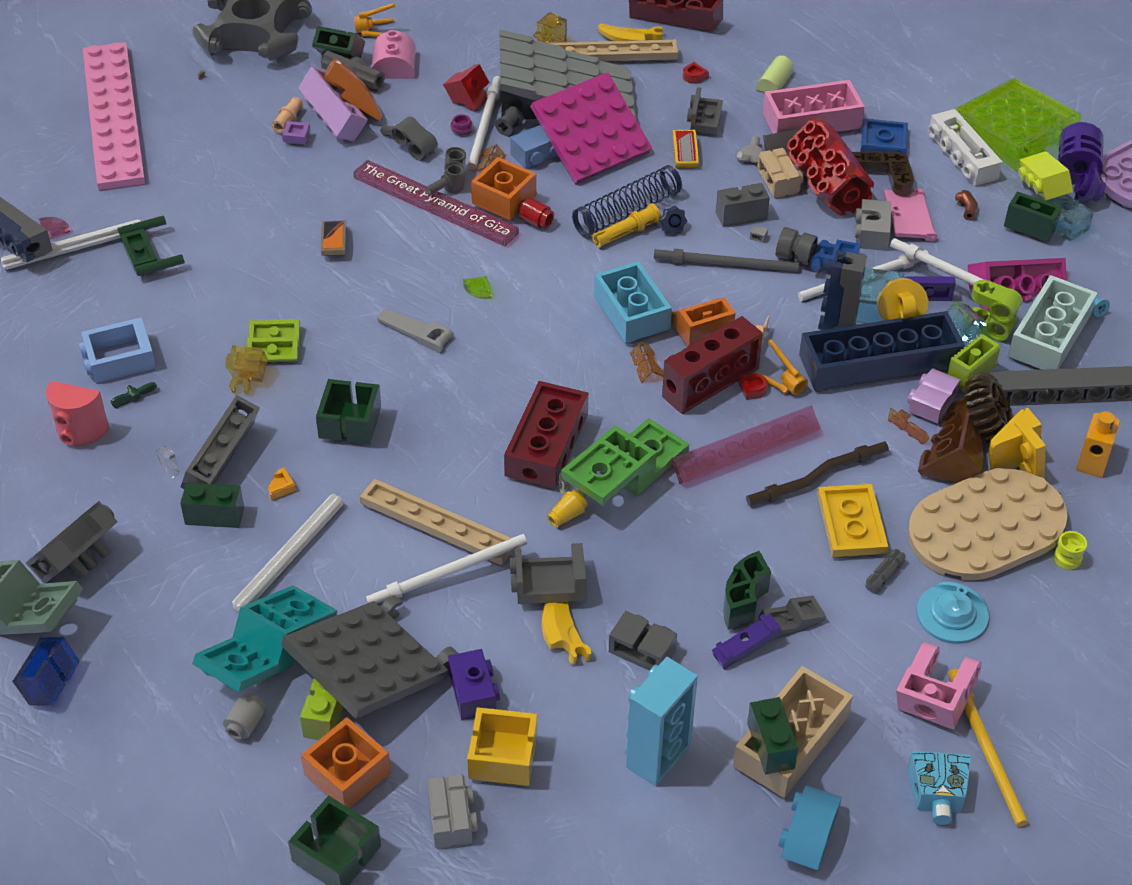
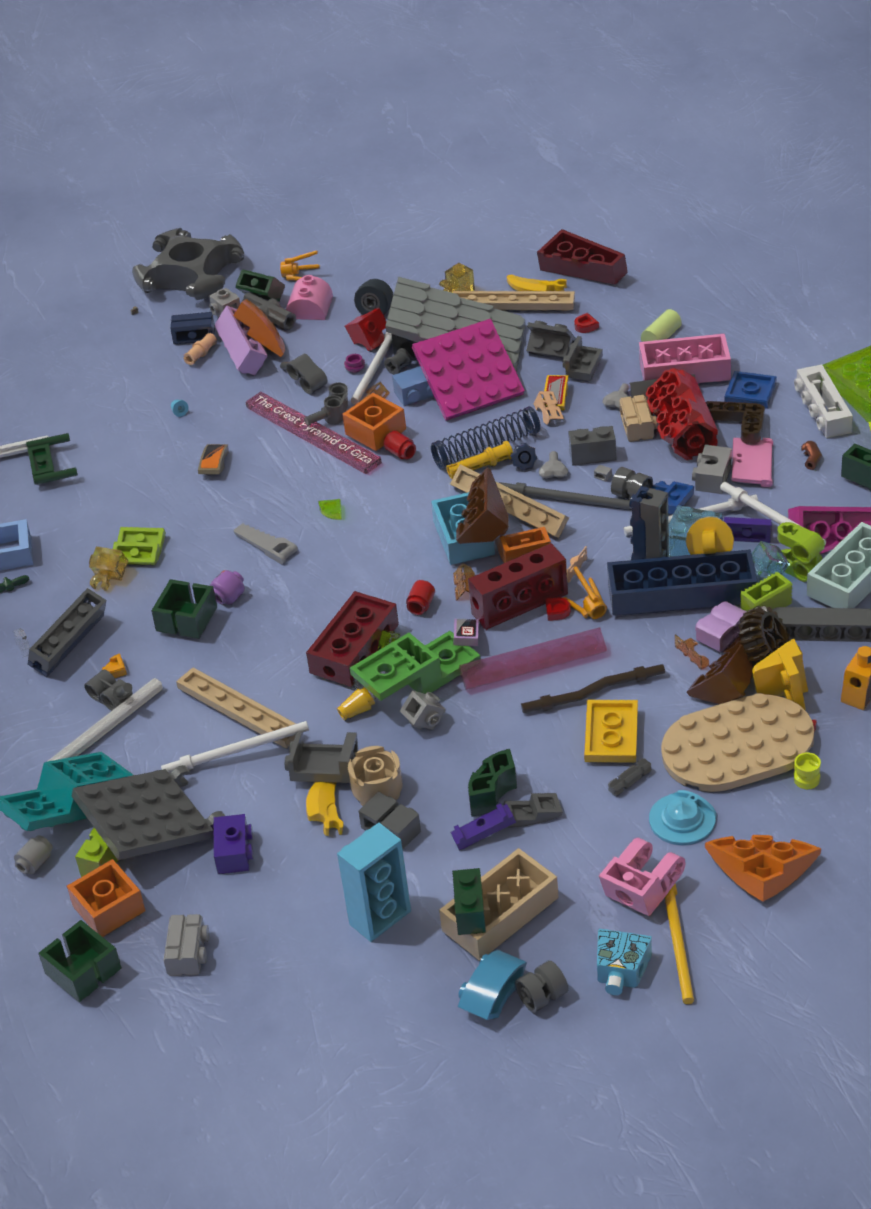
camera: 15 degrees right, 5 degrees down
(113, 117) = (48, 345): bright pink plate -> none
(212, 505) = (49, 680): dark green brick -> none
(272, 91) = (191, 327): none -> dark blue brick
(279, 512) = (107, 690): none -> dark grey beam
(281, 181) = (179, 407): none -> medium azure piece
(296, 132) = (203, 365): medium lavender plate -> none
(301, 61) = (221, 299): none -> light grey brick
(391, 382) = (228, 587): none -> medium lavender head
(462, 46) = (373, 295): none -> black wheel
(502, 746) = (245, 895): yellow piece -> none
(584, 430) = (388, 637): none -> clear neon green tile
(605, 382) = (420, 597): none -> red brick
(613, 589) = (375, 772): none -> tan brick
(646, 511) = (423, 710): none -> light grey brick
(658, 286) = (485, 513): none -> reddish brown wedge
(665, 92) = (549, 340): none -> dark grey bracket
(666, 418) = (466, 632): none -> slope
(671, 268) = (517, 504): none -> tan plate
(673, 160) = (539, 403): none -> light nougat piece
(705, 231) = (553, 467): none -> light grey rock
(865, 823) = (545, 984): none -> dark grey wheel
(1053, 659) = (761, 864): none -> orange brick

